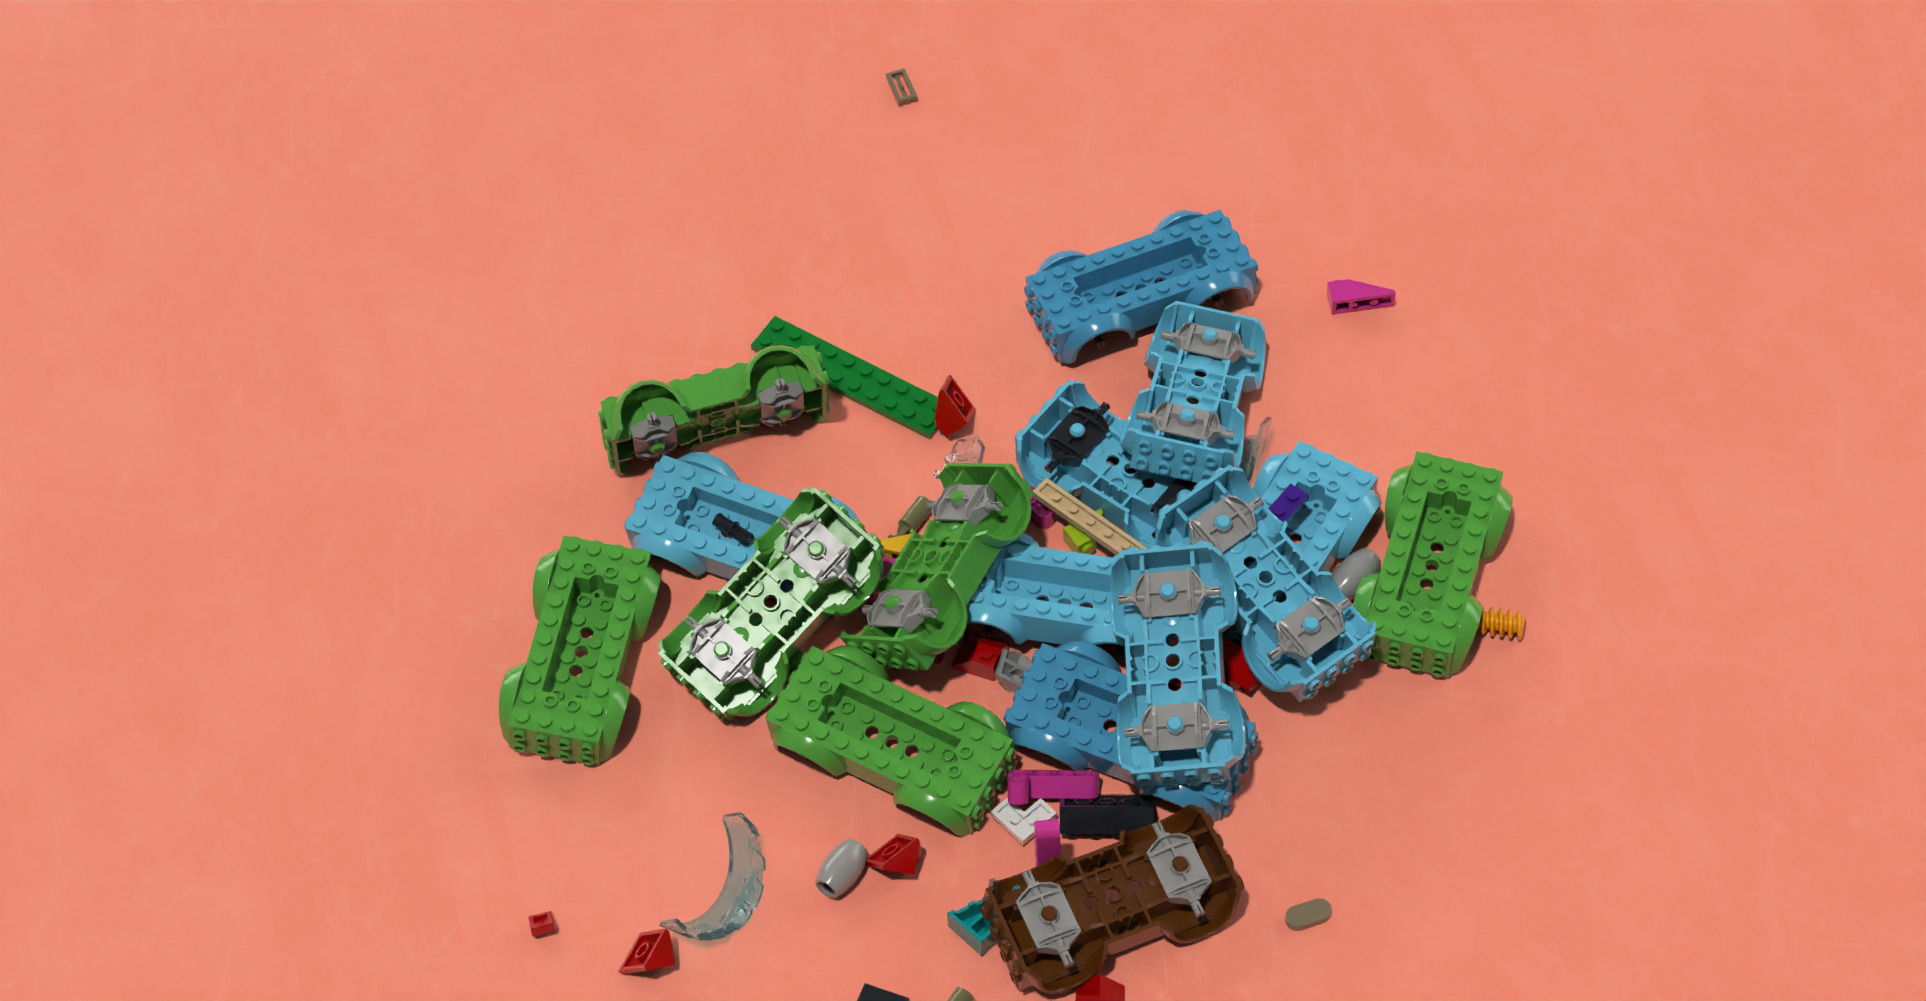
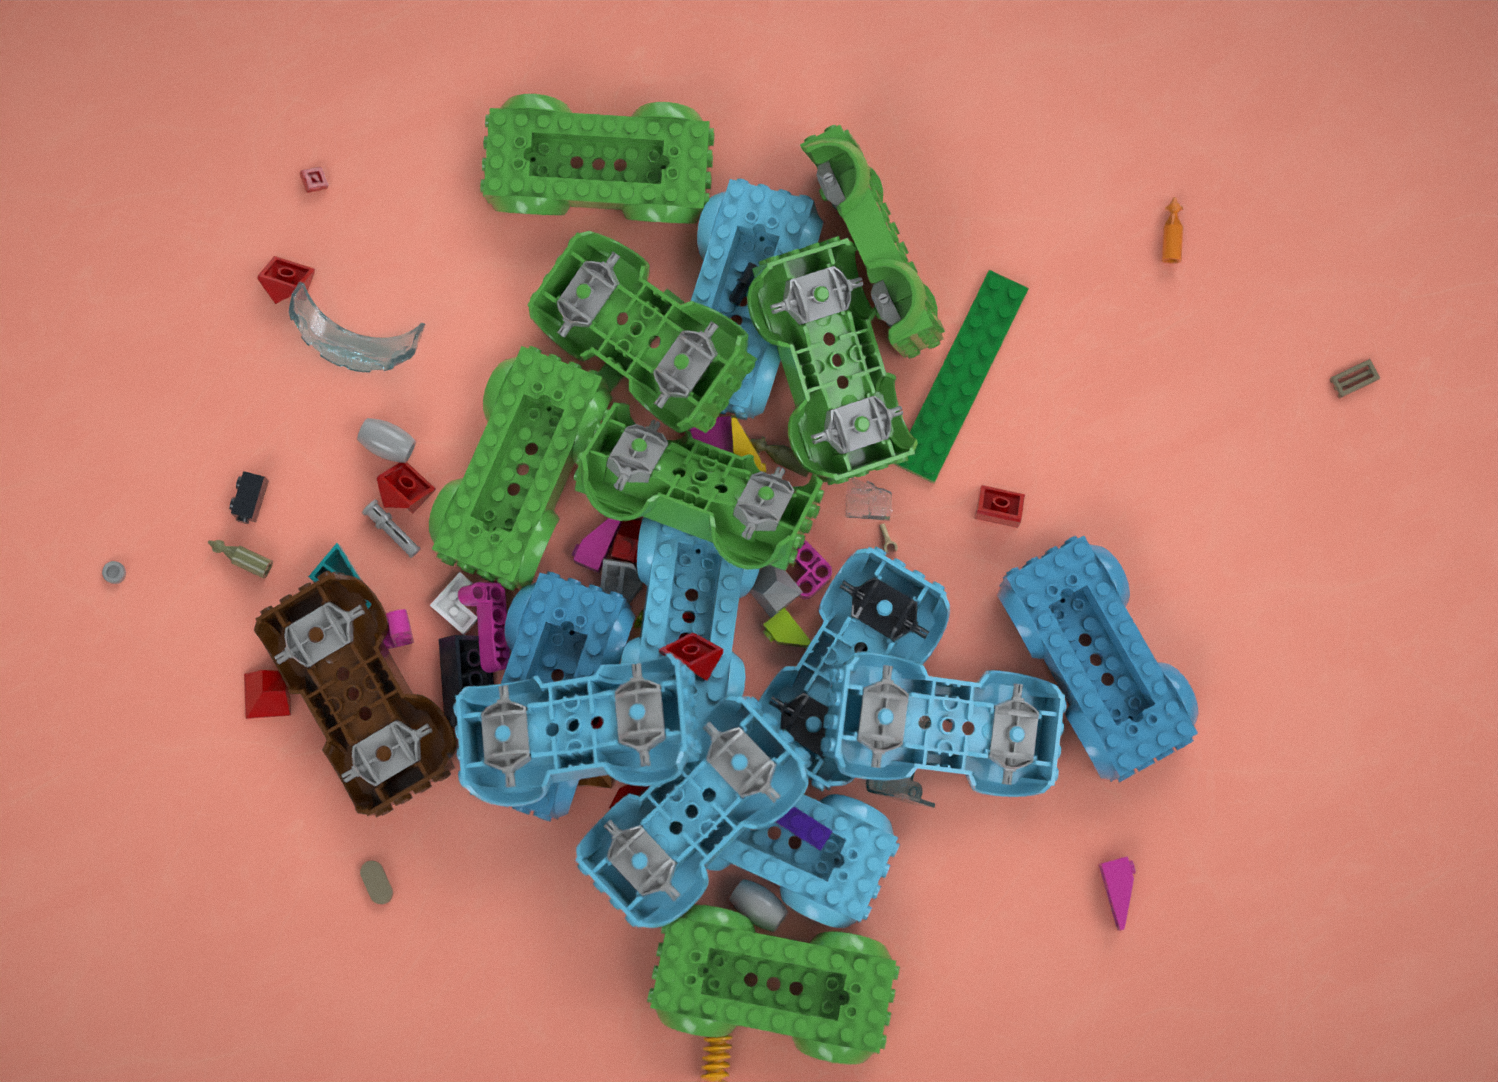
camera: 85 degrees right, 25 degrees up
(742, 202) = (1172, 234): none -> orange wheel
(830, 451) = (793, 307): none -> bright green piece
(928, 879) = (384, 521): none -> light grey pin
(952, 407) = (923, 482): red slope -> none
(976, 685) = (596, 545): none -> dark pink slope
(985, 355) = (1000, 506): none -> red slope
(1008, 448) = (887, 539): none -> tan hand
(1049, 532) = (774, 589): none -> light grey slope
(1084, 517) = (787, 633): tan plate -> none
(1098, 587) = (695, 652): none -> red slope

